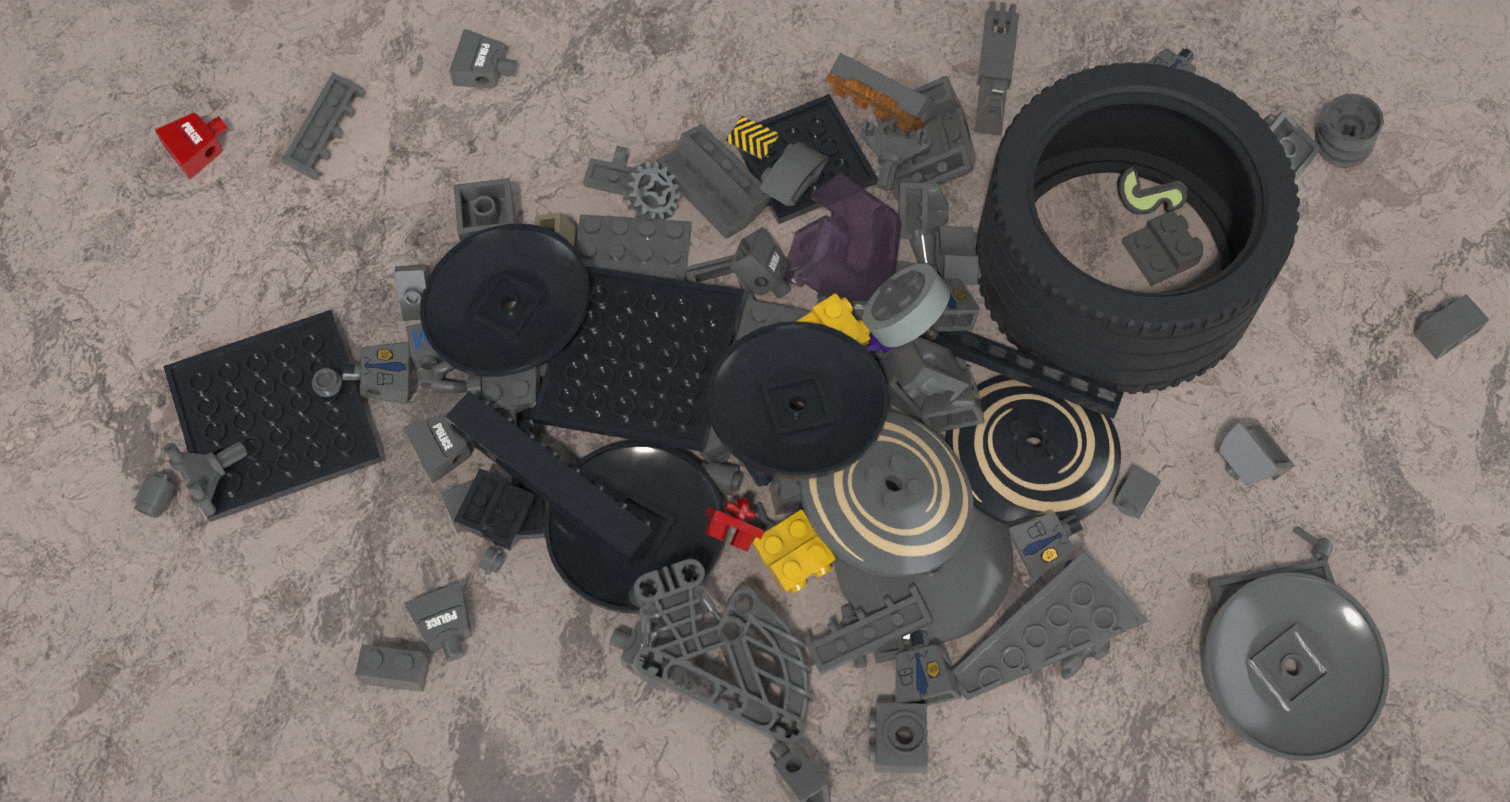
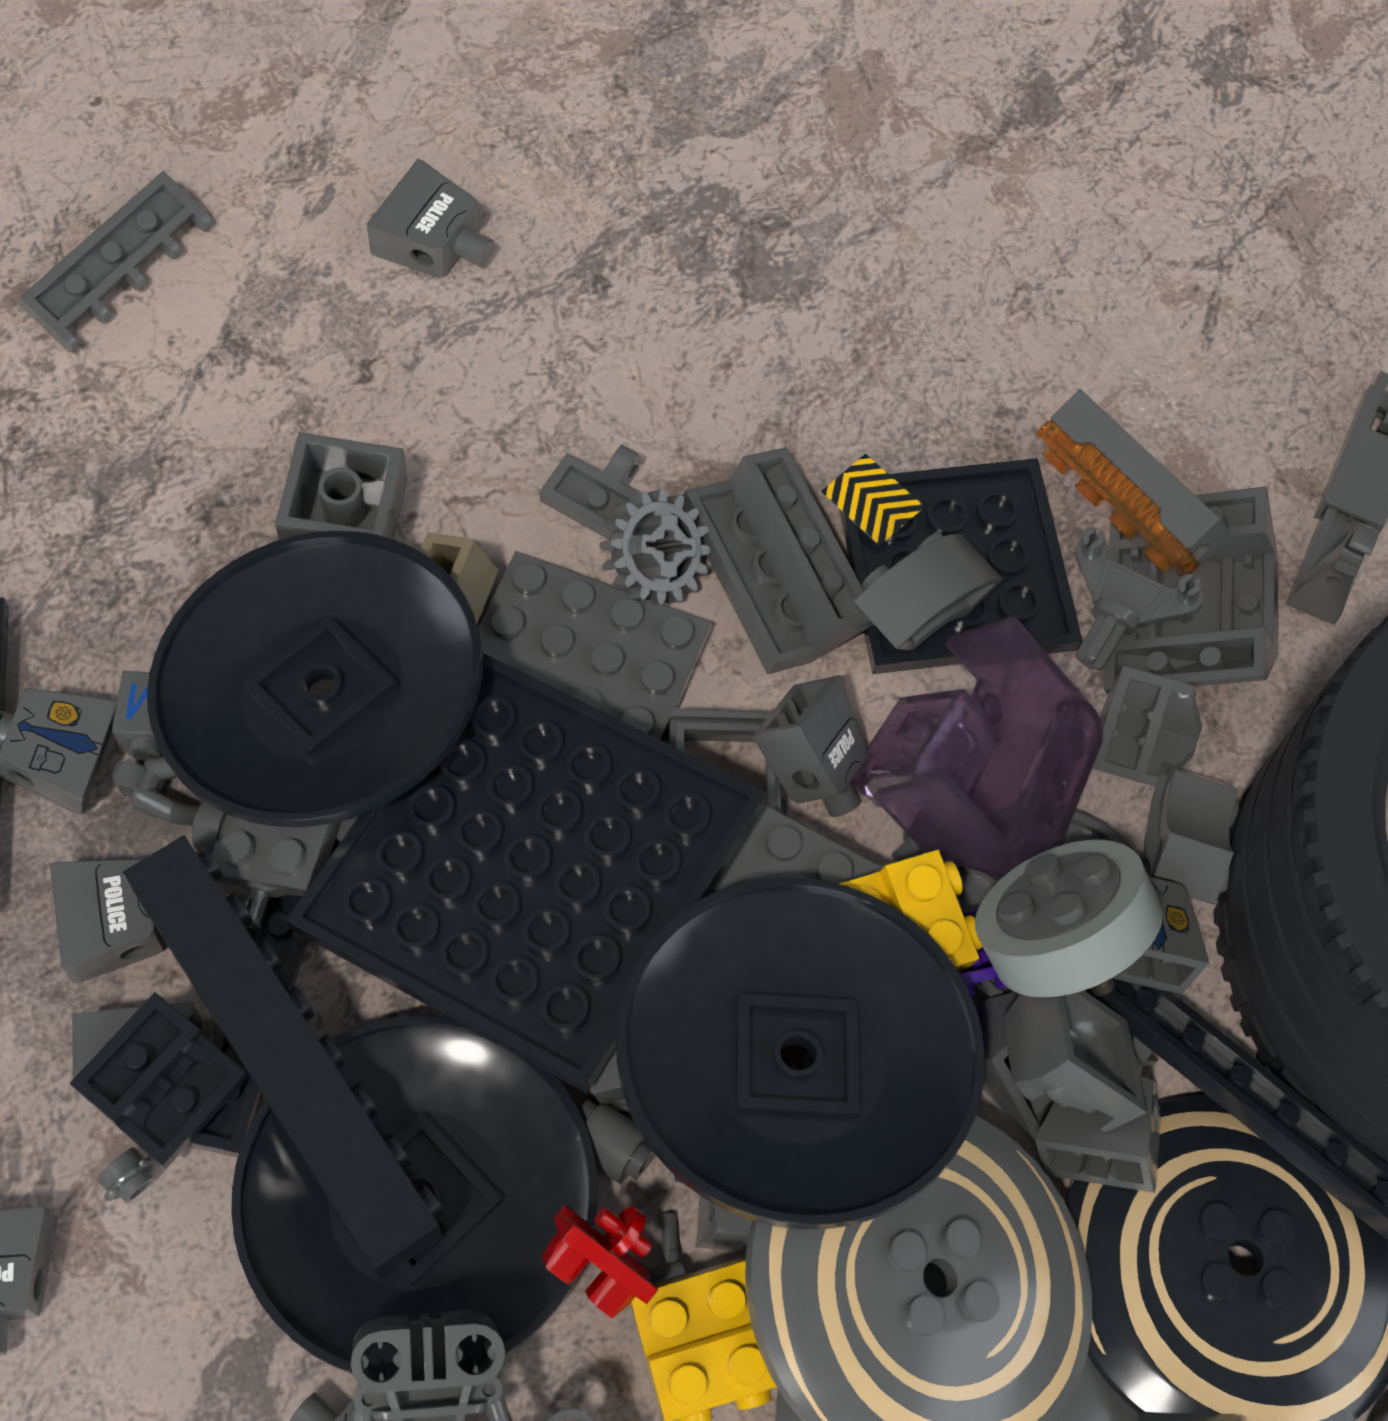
camera: 10 degrees right, 0 degrees up
(410, 285) = (156, 594): dark grey brick -> none
(924, 246) = (1132, 800): dark grey cone -> none

